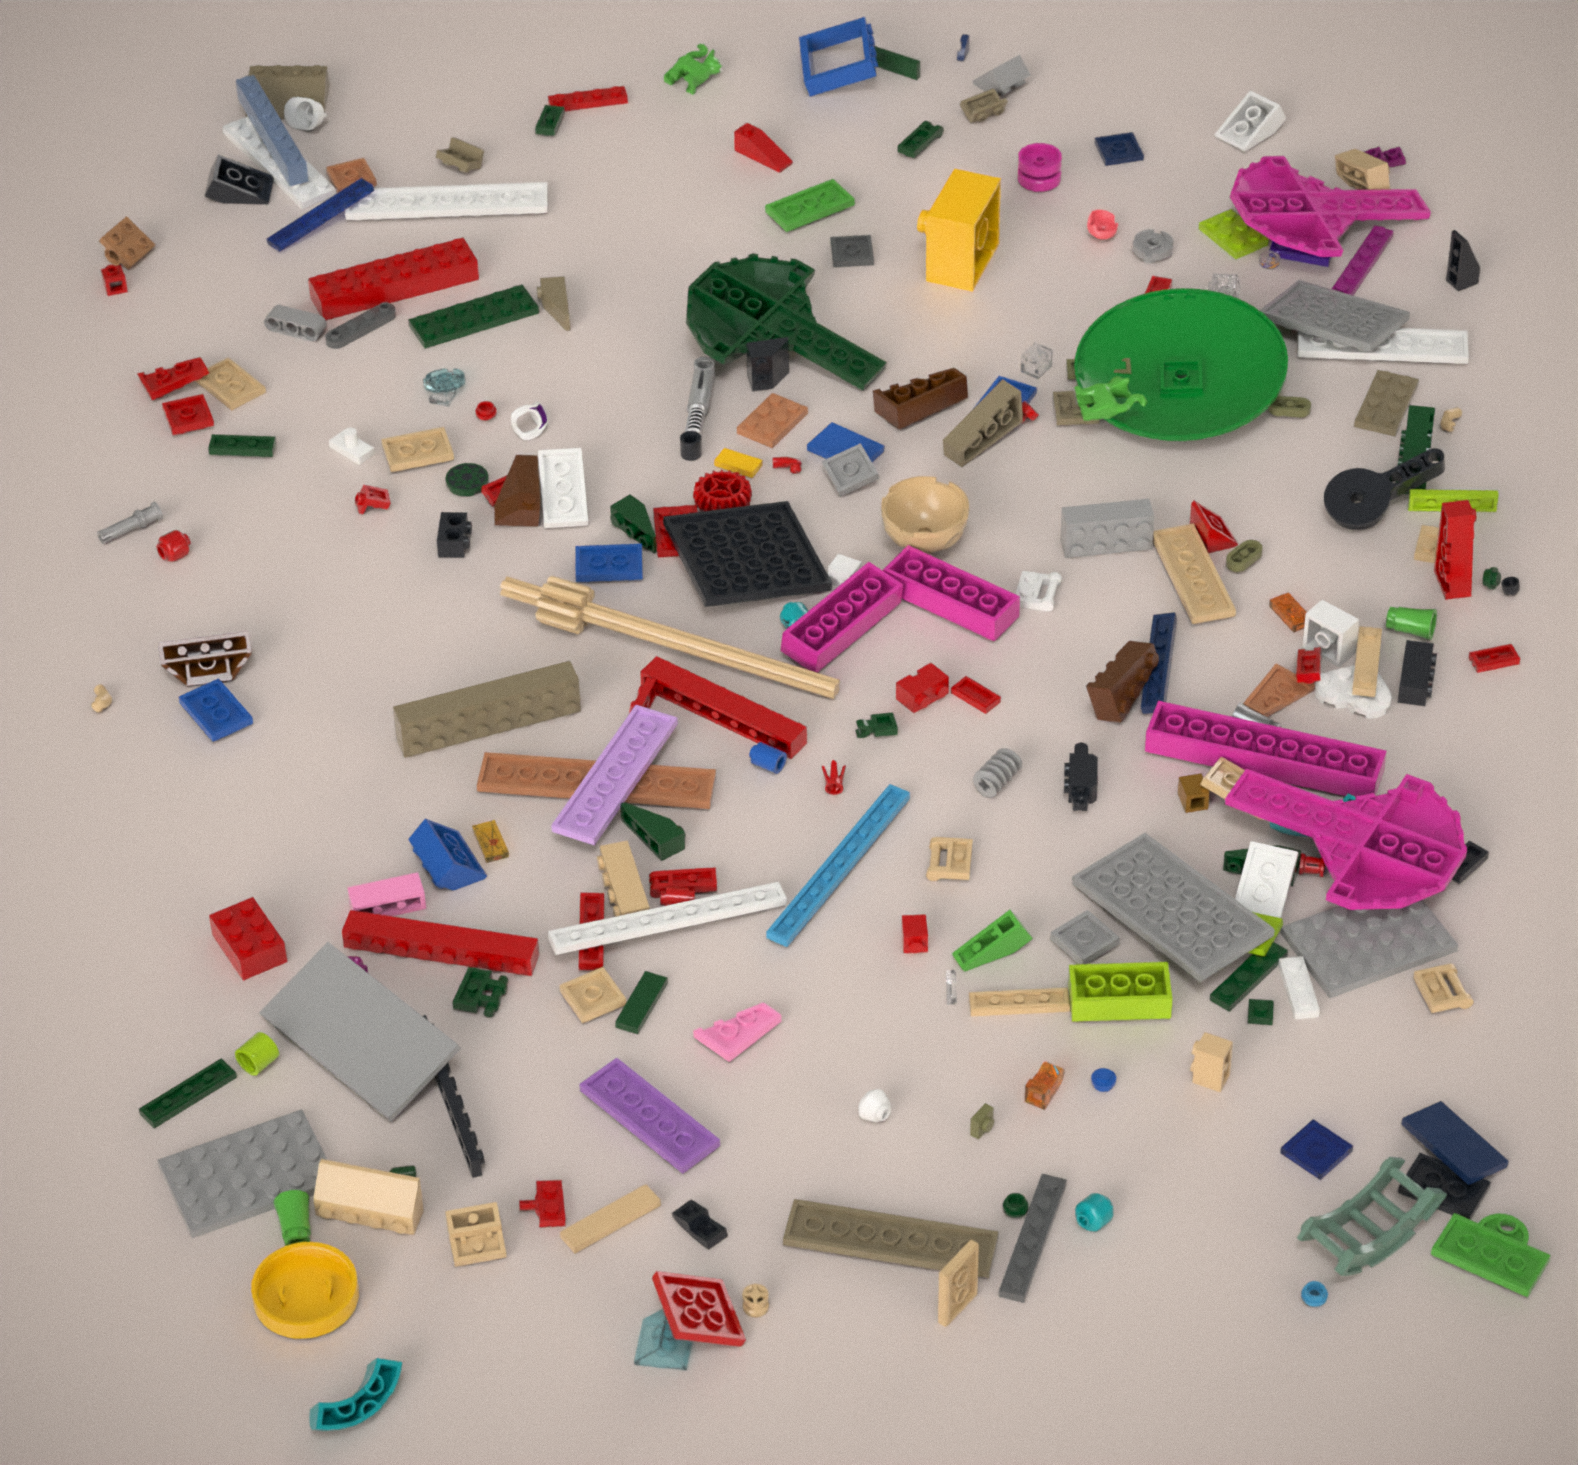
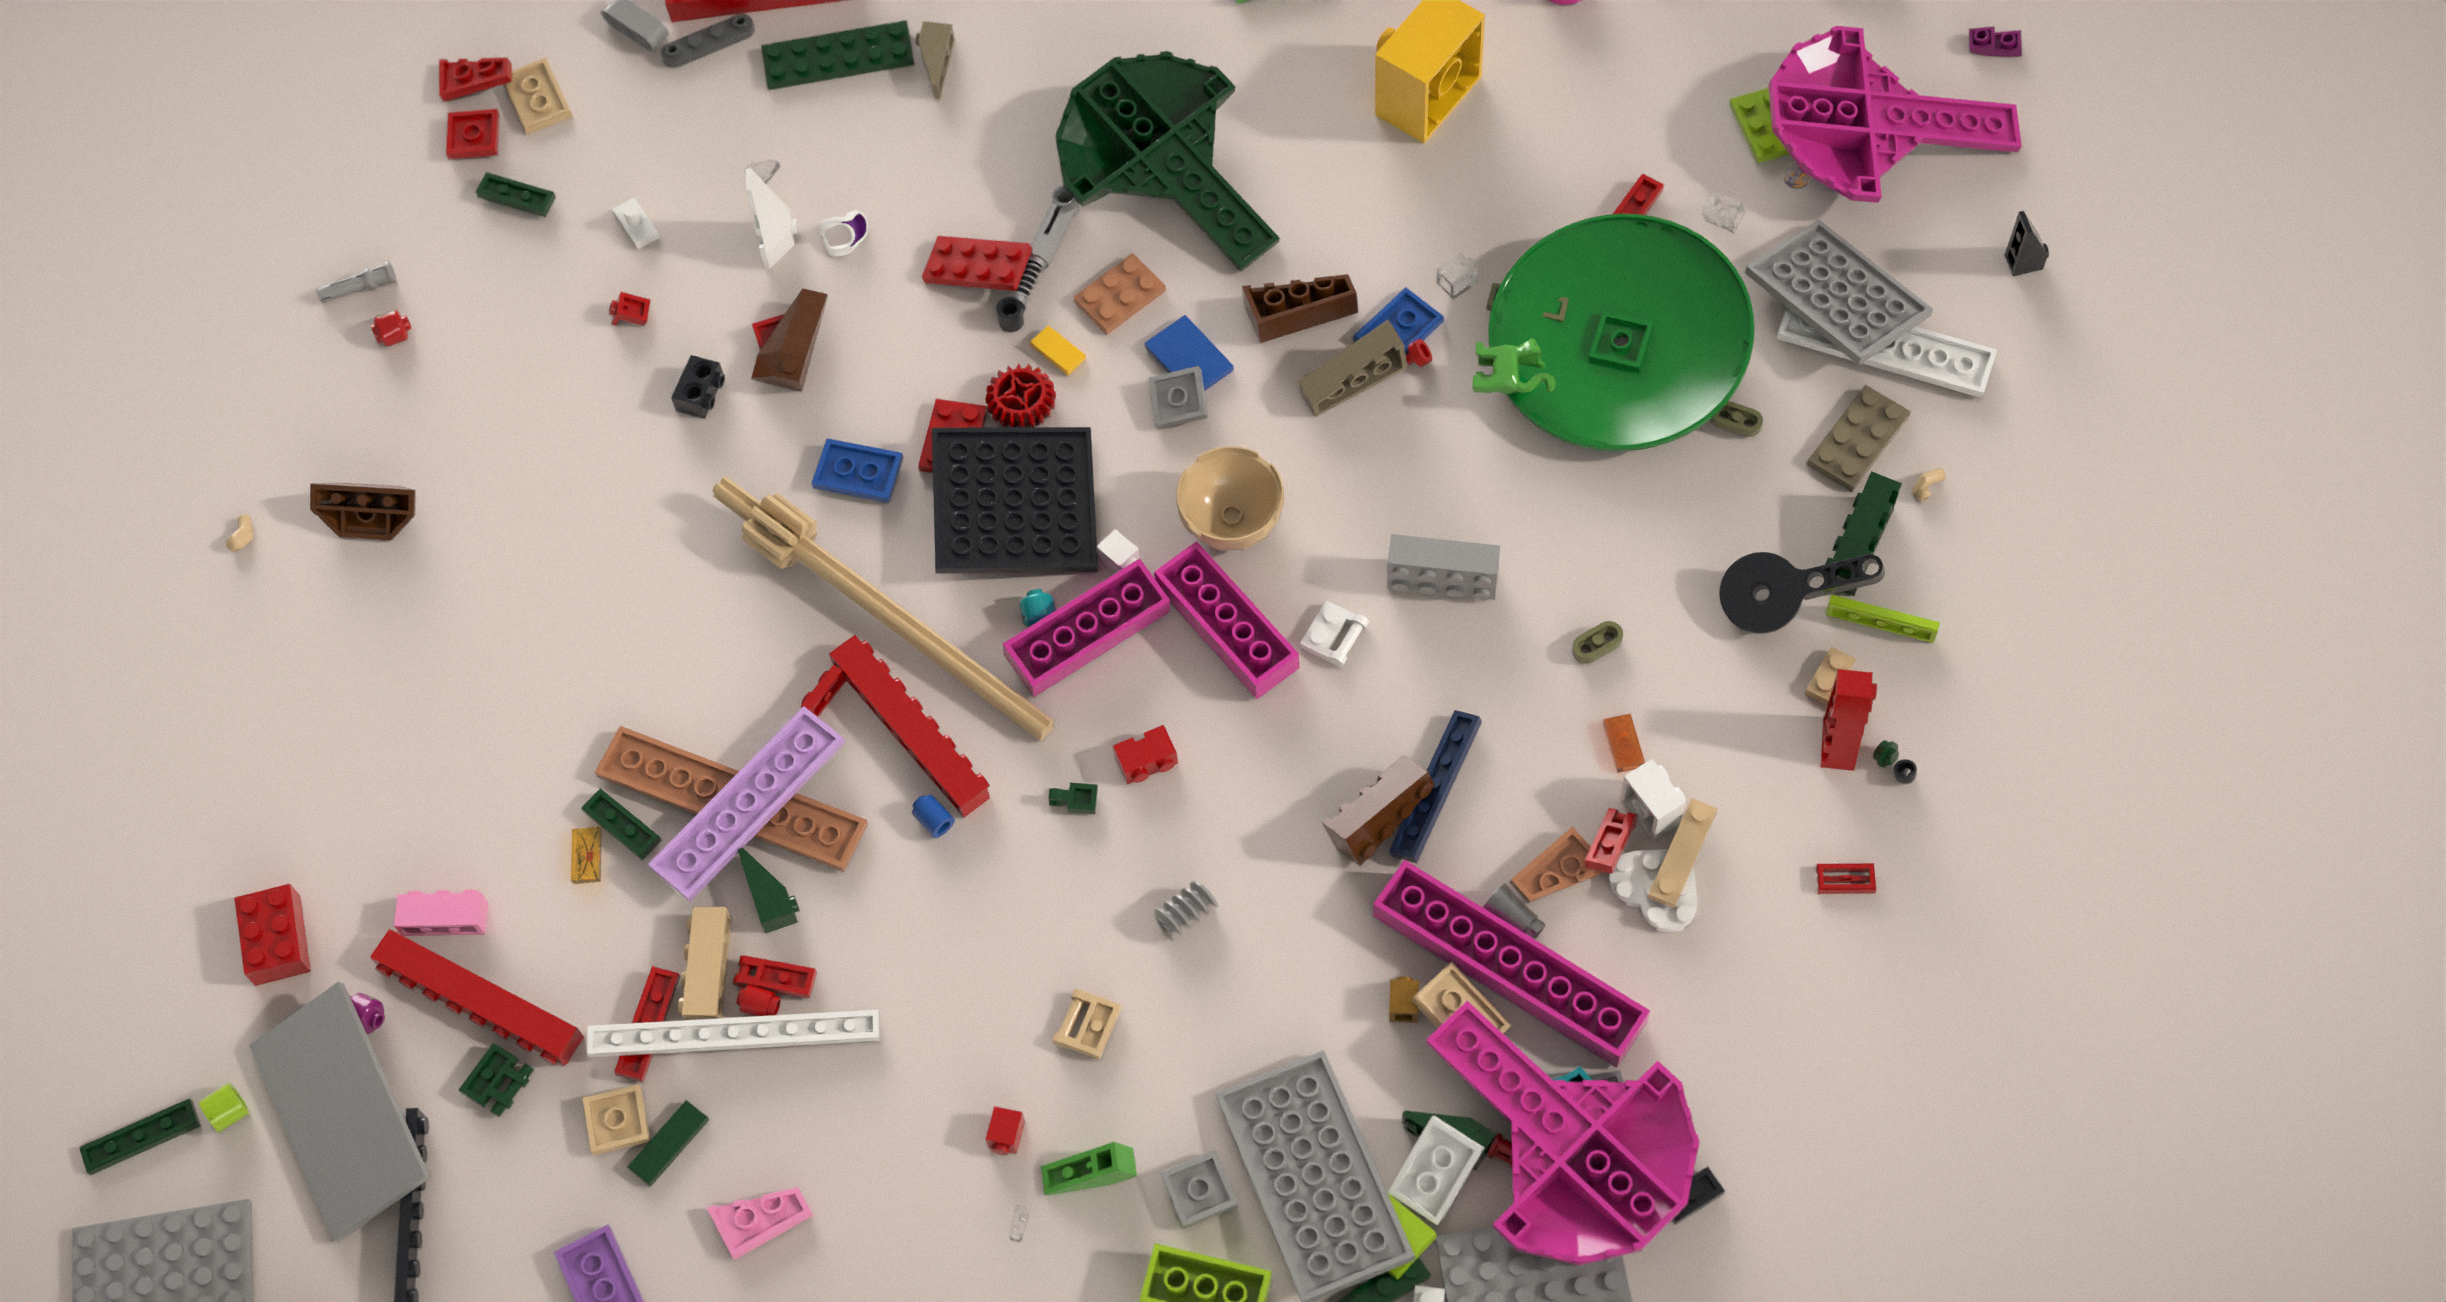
camera: 20 degrees right, 20 degrees up
(215, 710) = (354, 583): blue plate -> none
(417, 449) = (704, 246): tan plate -> none
(444, 380) = (769, 148): clear light blue tile -> none
(446, 856) = (527, 869): blue slope -> none
(466, 479) = (745, 302): dark green tile -> none
(472, 421) = (771, 219): none -> white wedge
(486, 410) = (800, 204): red plate -> none
(487, 709) = (639, 667): dark tan brick -> none
(512, 814) = (621, 824): none -> dark green plate
(562, 488) = (840, 349): white plate -> none
(632, 518) = (908, 412): dark green slope -> none
(650, 418) = (977, 263): none -> red plate
(767, 363) = (1137, 212): black slope -> none
(786, 462) = (1114, 363): red arm -> none
(834, 783) = (992, 873): red piece -> none
(837, 865) = (956, 999): dark azure plate -> none
(852, 251) = (1303, 50): dark grey tile -> none
(975, 694) = (1207, 776): red tile -> none
(1019, 1002) = (1090, 1262): tan tile -> none
(1067, 410) = (1464, 360): dark tan plate -> none
(1082, 777) = (1281, 944): black hinge -> none
(1102, 224) = (1610, 78): coral hair -> none
(1152, 245) = (1661, 134): light grey plate -> none
(1193, 574) = (1526, 655): tan plate -> none
(1211, 529) = (1574, 591): red slope -> none
(1362, 170) = (1958, 64): tan wedge -> none
(1363, 260) = (1908, 206): magenta plate -> none
(1412, 621) = (1763, 800): bright green plant -> none
(1417, 673) = (1739, 883): black brick -> none

